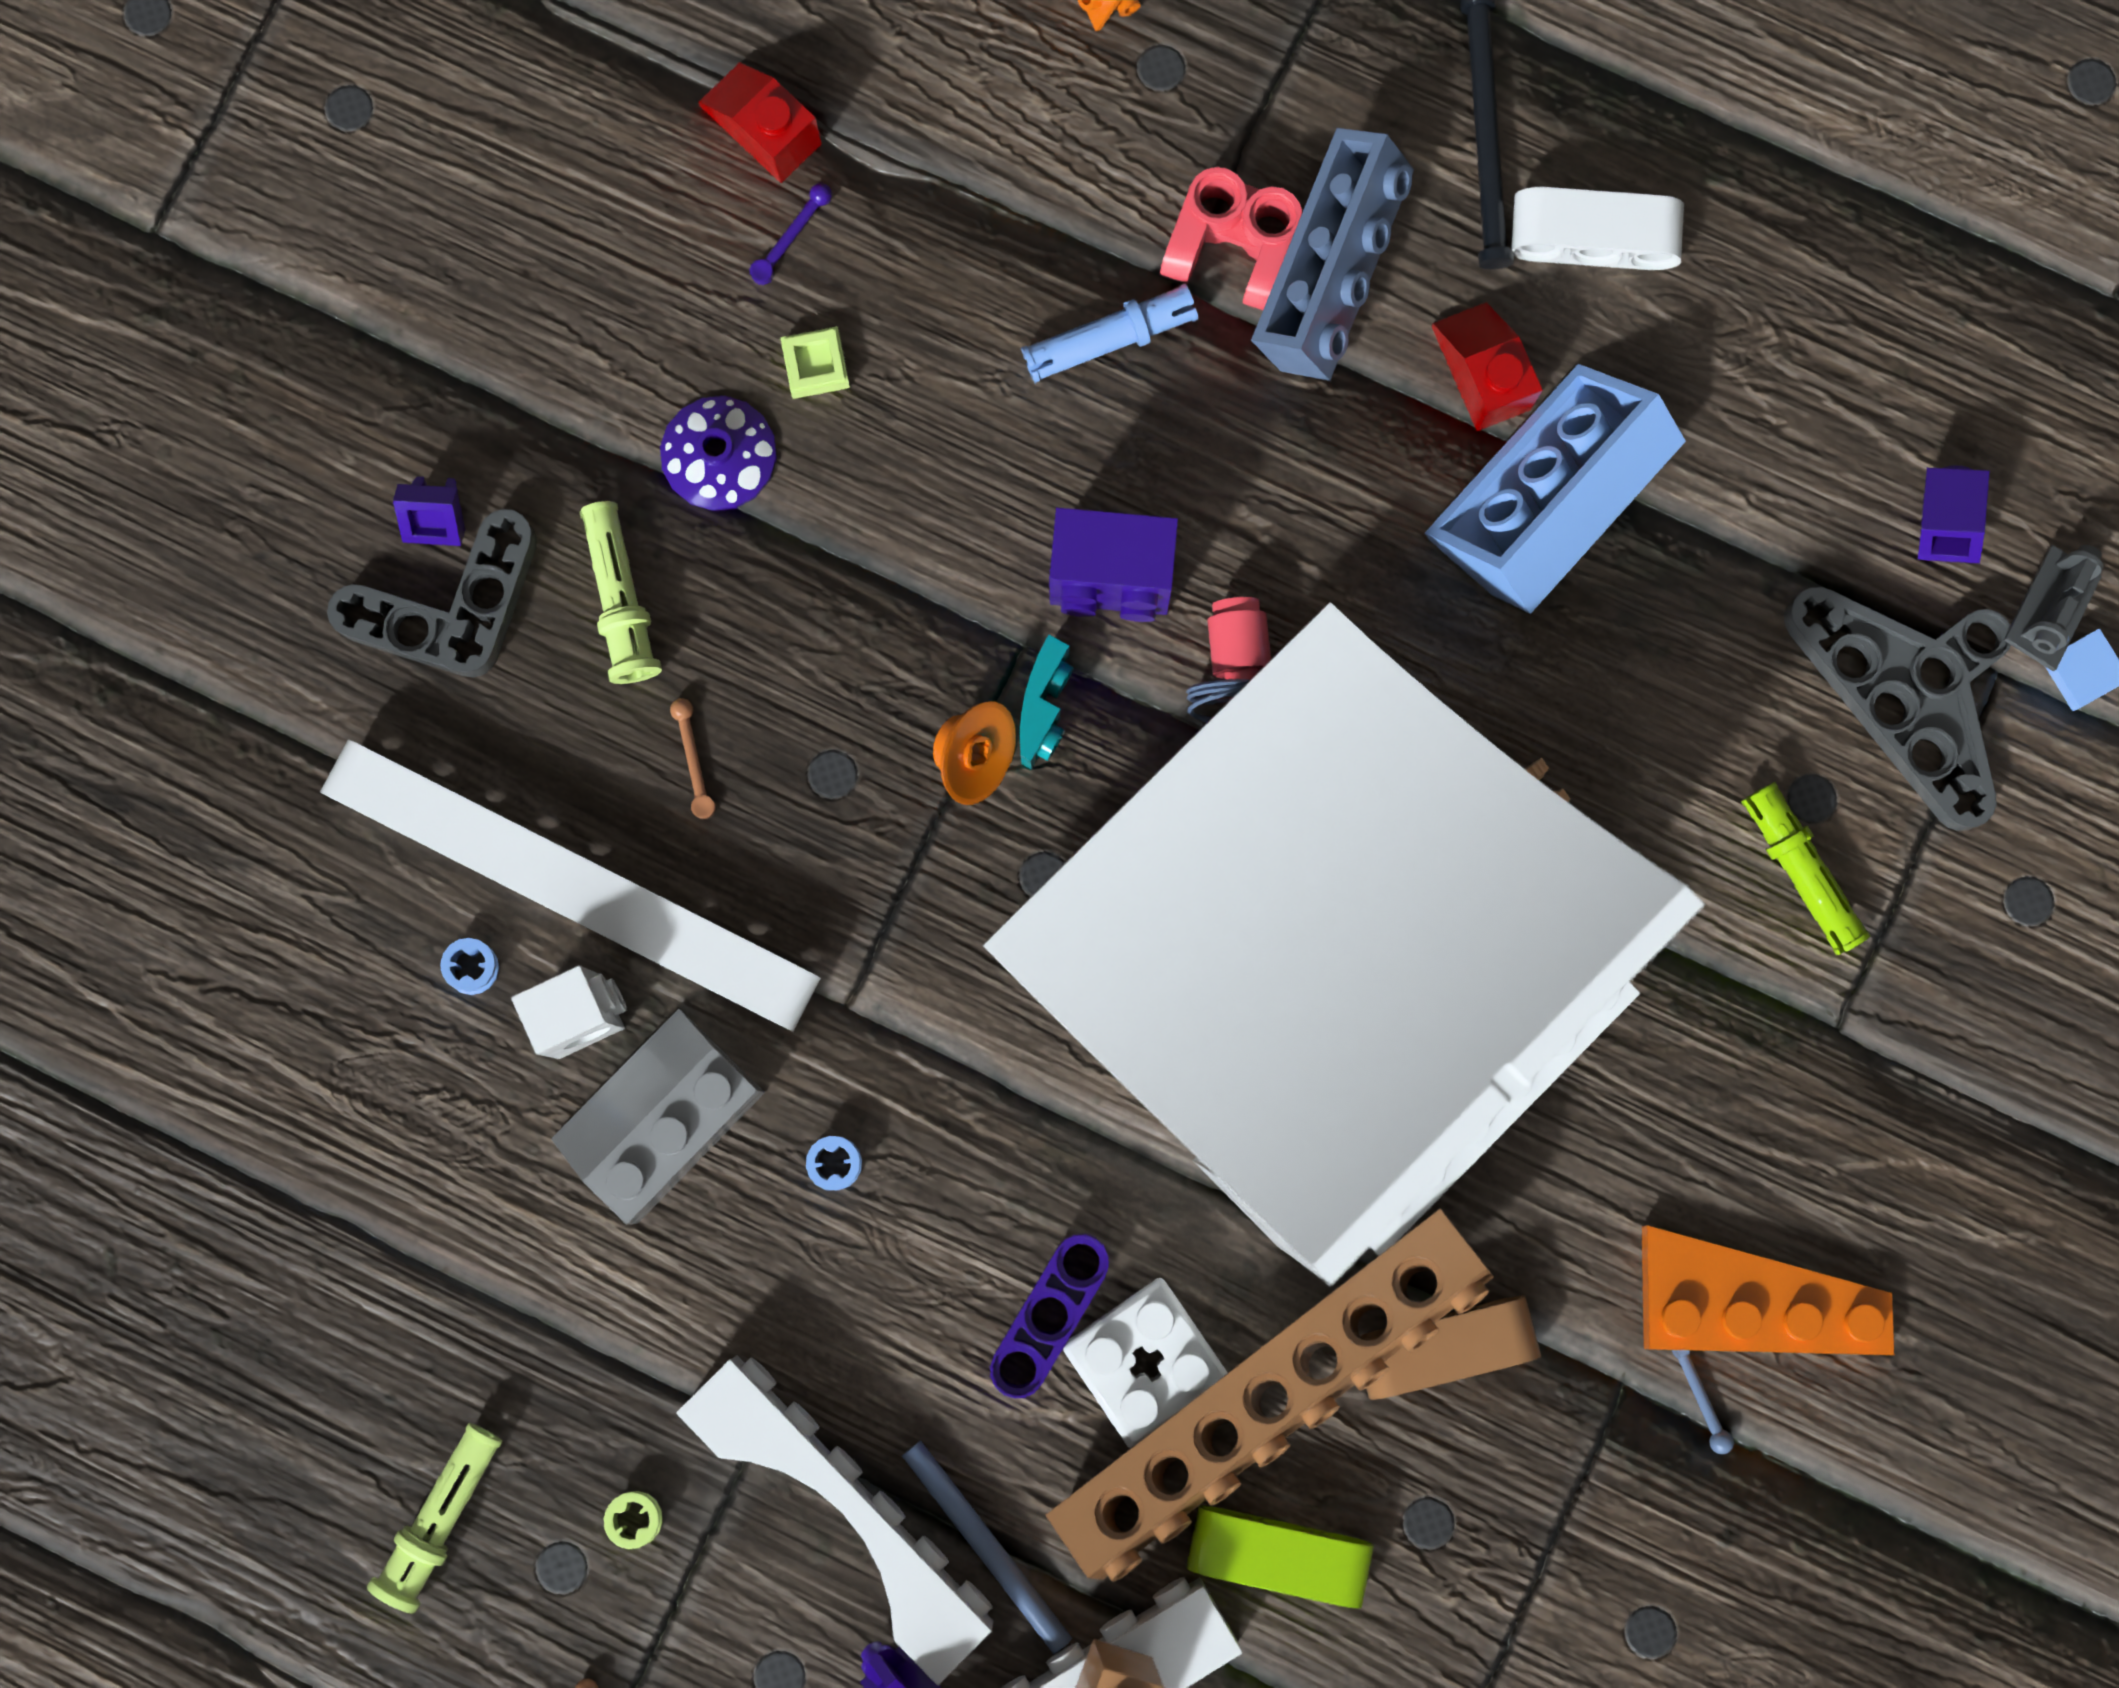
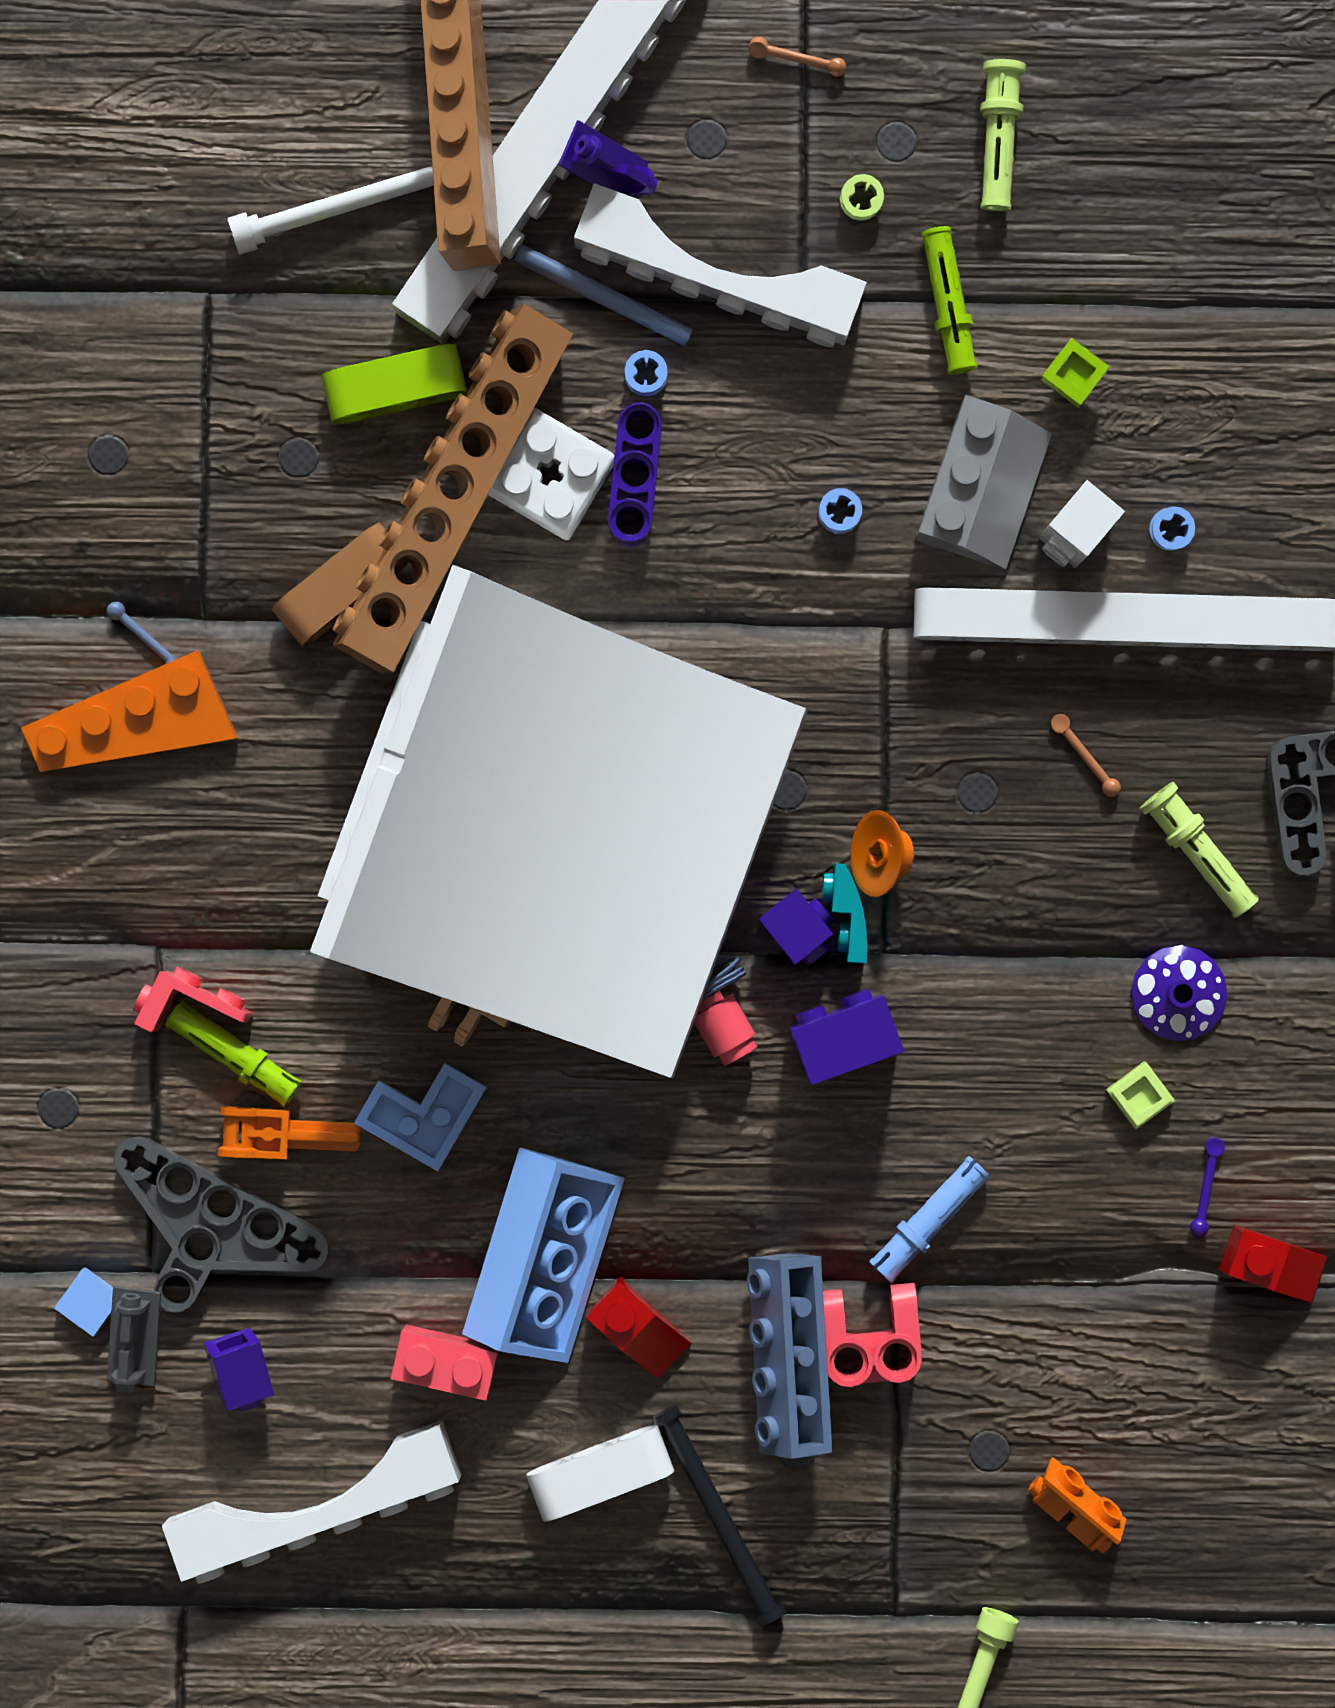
camera: 155 degrees right, 5 degrees up
(489, 1193) = (1074, 372): none -> lime tile
(573, 1419) = (959, 355): none -> lime pin
(997, 1438) = (660, 373): none -> light blue bush
(1105, 713) = (798, 927): none -> dark purple brick
(1626, 685) = (428, 1128): none -> light blue plate
(1722, 420) = (444, 1362): none -> coral brick
(1801, 760) = (271, 1134): none -> orange connector
(1870, 966) = (157, 1000): none -> coral bracket
(2046, 349) = (221, 1535): none -> white arch

